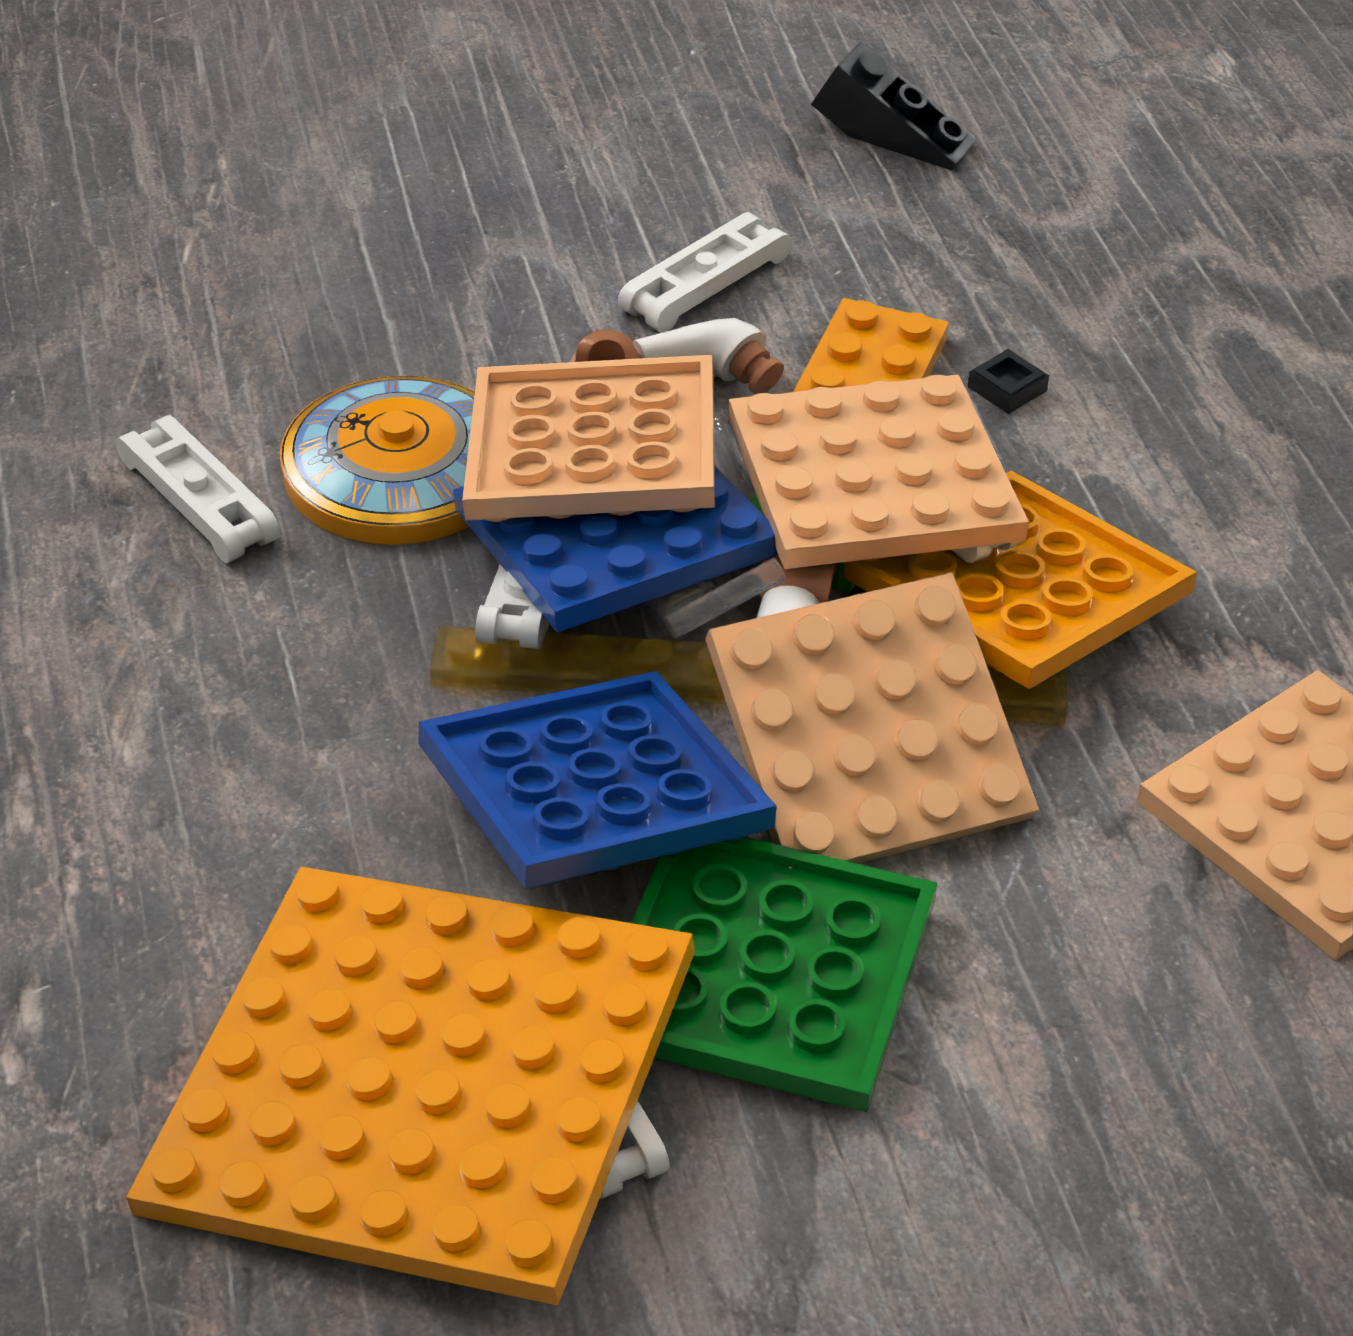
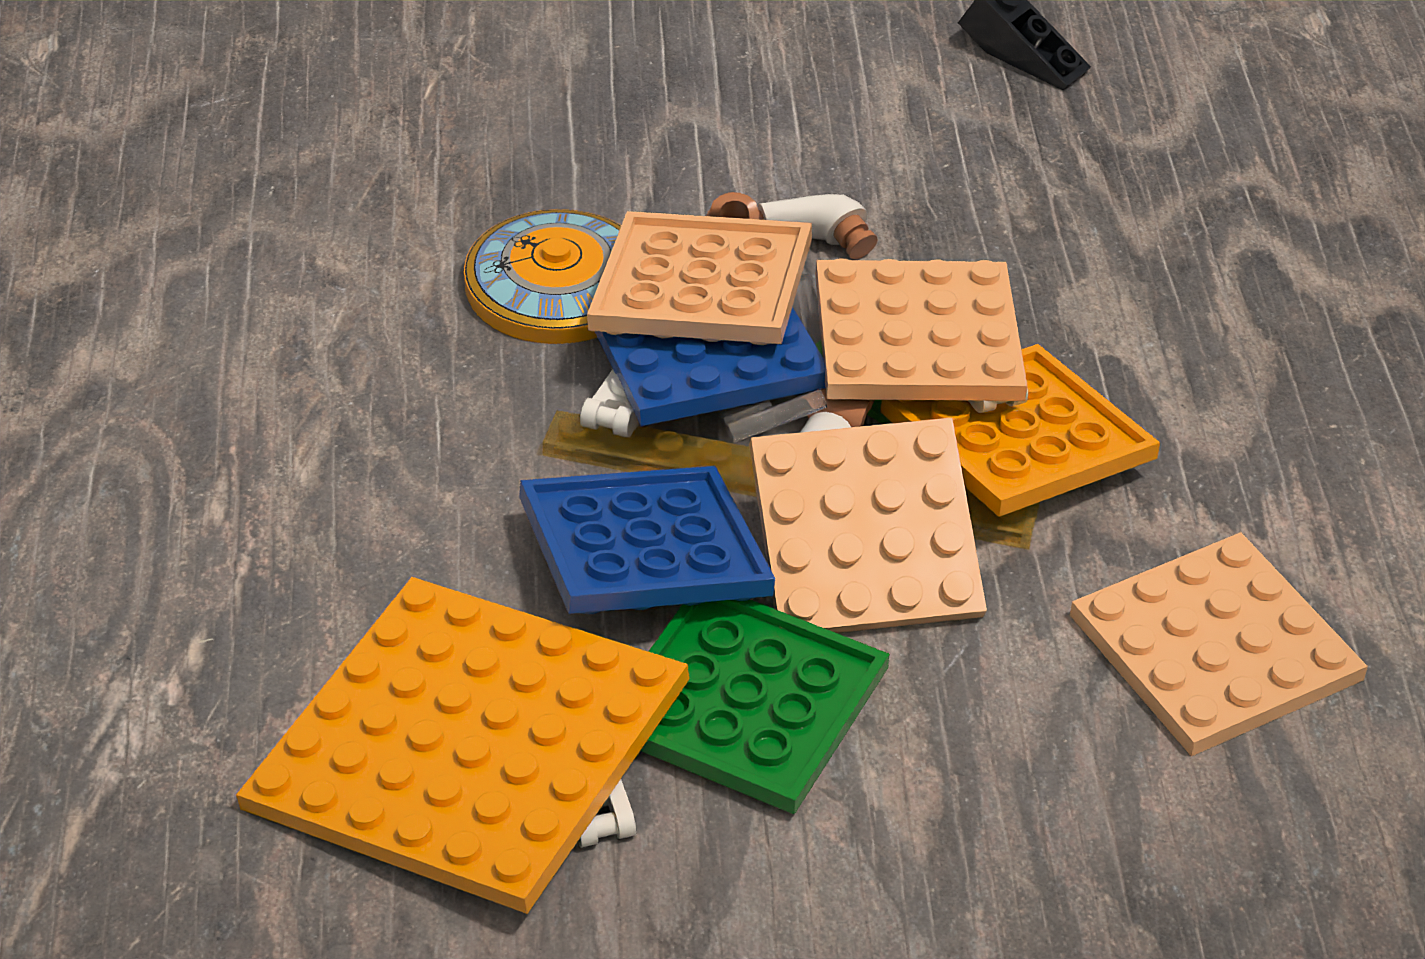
camera: 10 degrees right, 0 degrees up
(199, 487) = (397, 280): white plate -> none
(703, 270) = (834, 151): white plate -> none
(874, 345) = (956, 230): light orange plate -> none
(1008, 381) = (1059, 271): black tile -> none

